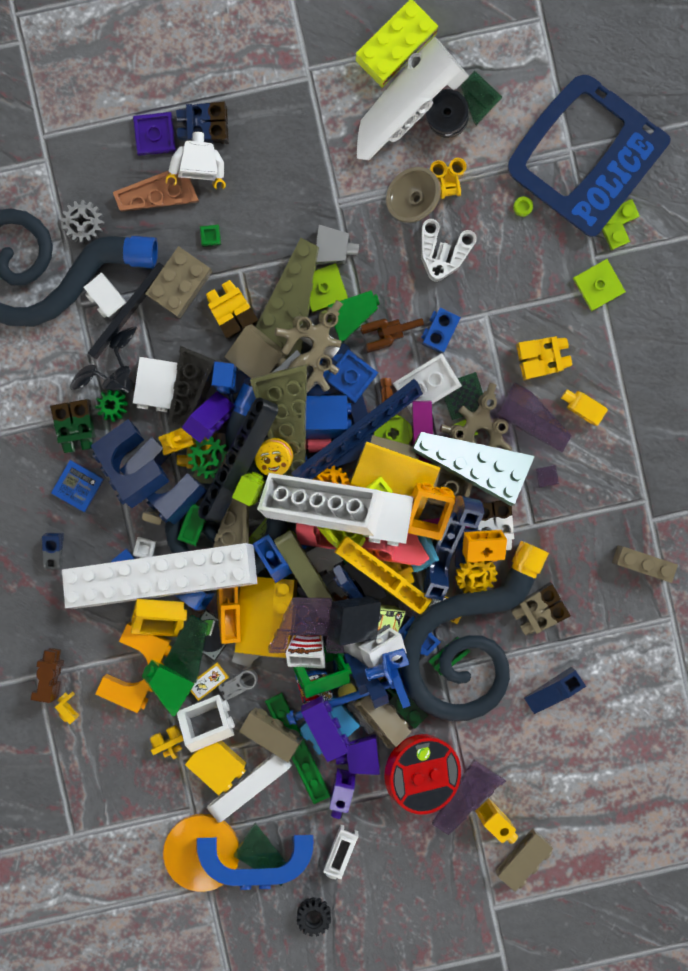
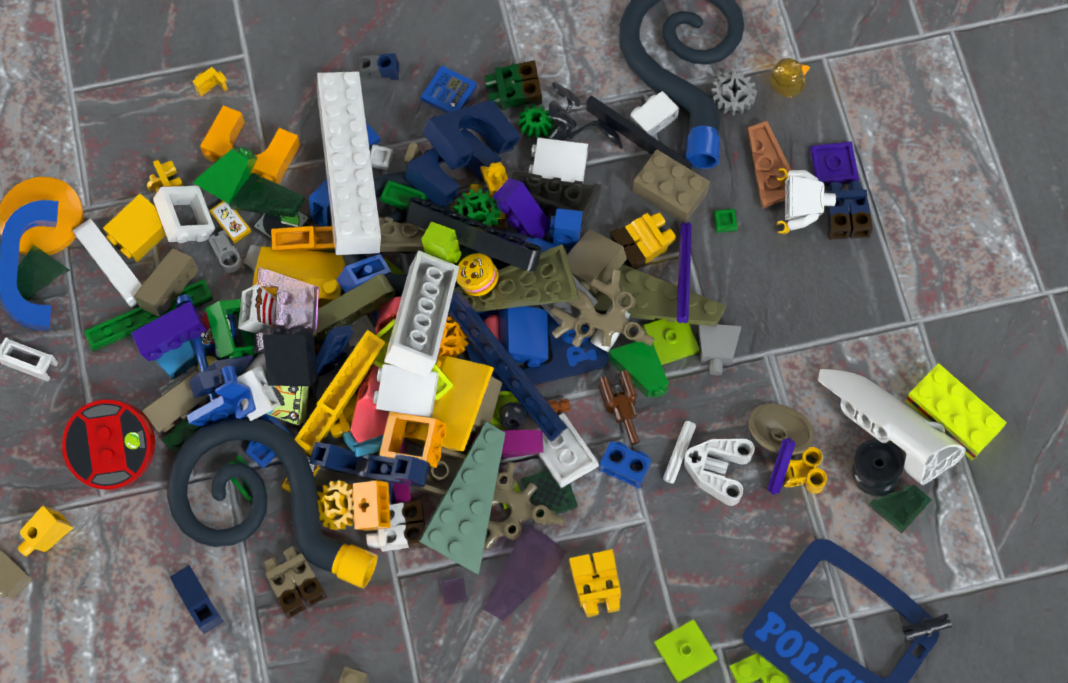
camera: 90 degrees right, 20 degrees down
(47, 675) = (245, 61): reddish brown hips -> none
(67, 169) = (789, 77): none -> clear yellow piece
(158, 617) = (303, 162): yellow window -> none
(268, 272) = (684, 272): none -> dark purple axle
(341, 793) = (95, 358): dark purple torso -> none
(353, 376) = (570, 366): blue tile -> none
(361, 756) = (134, 380): dark purple torso -> none
(401, 425) = (513, 416): none -> black piece
(428, 284) = (679, 452): none -> white axle
(450, 196) = (781, 465): none -> dark purple axle
(474, 787) = (84, 505): clear purple wing -> none
(523, 206) = (776, 560): lime tile -> none
(584, 83) = (926, 627): none -> black pin
(584, 406) = (537, 632): yellow piece -> none

